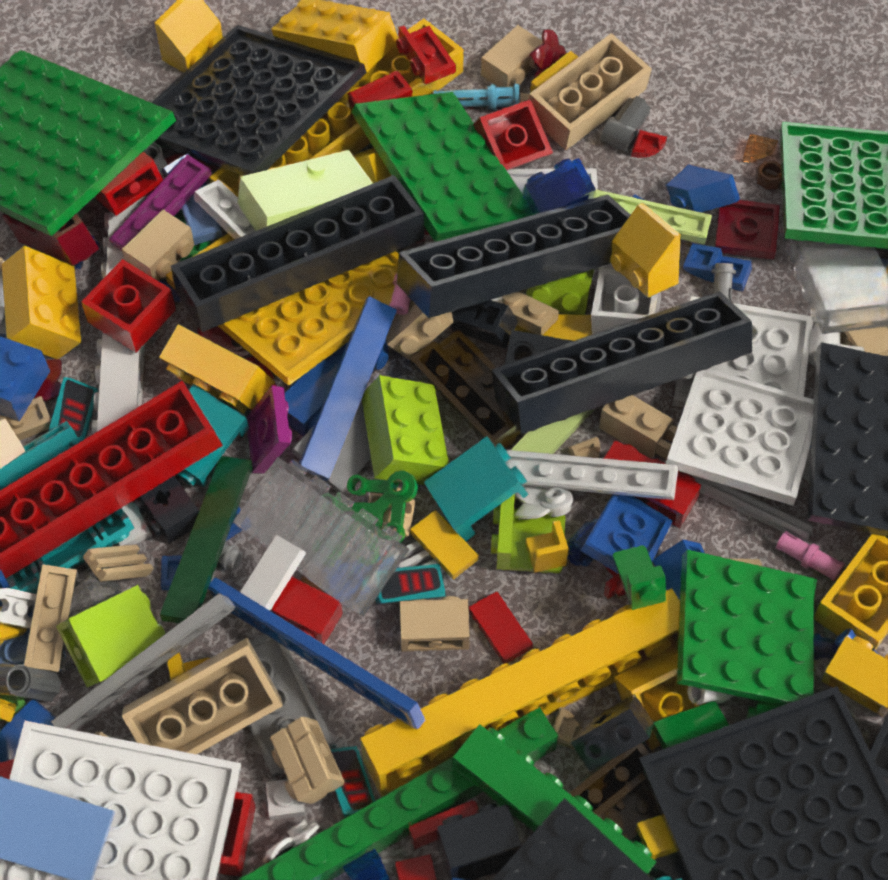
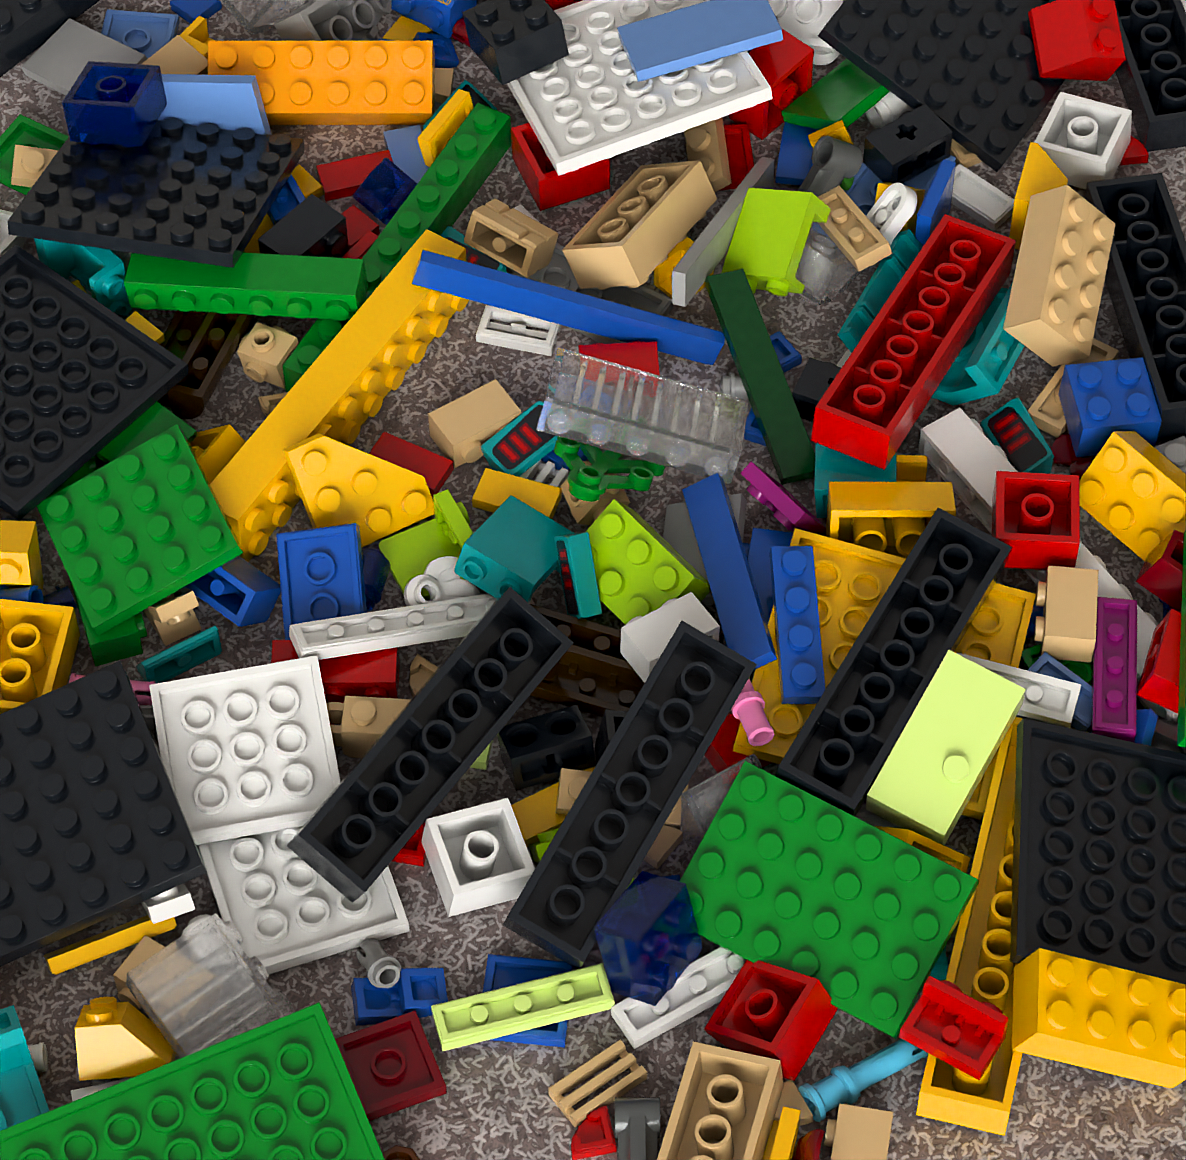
camera: 150 degrees right, 5 degrees down
(115, 558) = (841, 281): tan tile -> none
(273, 572) = (663, 357): white tile -> none
(298, 834) = (480, 182): white plate -> none
(334, 317) = (797, 624): none -> blue plate
(366, 721) = (517, 335): none -> white tile
(385, 88) = (973, 949): red tile -> none
(422, 355) = (647, 636): none -> white brick
(450, 437) = (578, 575): none -> teal slope
(548, 549) = (399, 538): yellow panel -> none
(561, 762) = (265, 353): none -> tan brick
(578, 596) = (356, 487): none -> yellow plate
(612, 732) = (229, 390): black brick -> none
(627, 164) = (627, 1061): none -> tan tile
(640, 579) = (272, 501): green bracket -> none
(647, 252) = (477, 877): yellow slope -> none
(702, 189) = (477, 1071): blue slope -> none
(769, 552) = (181, 656): none -> teal slope

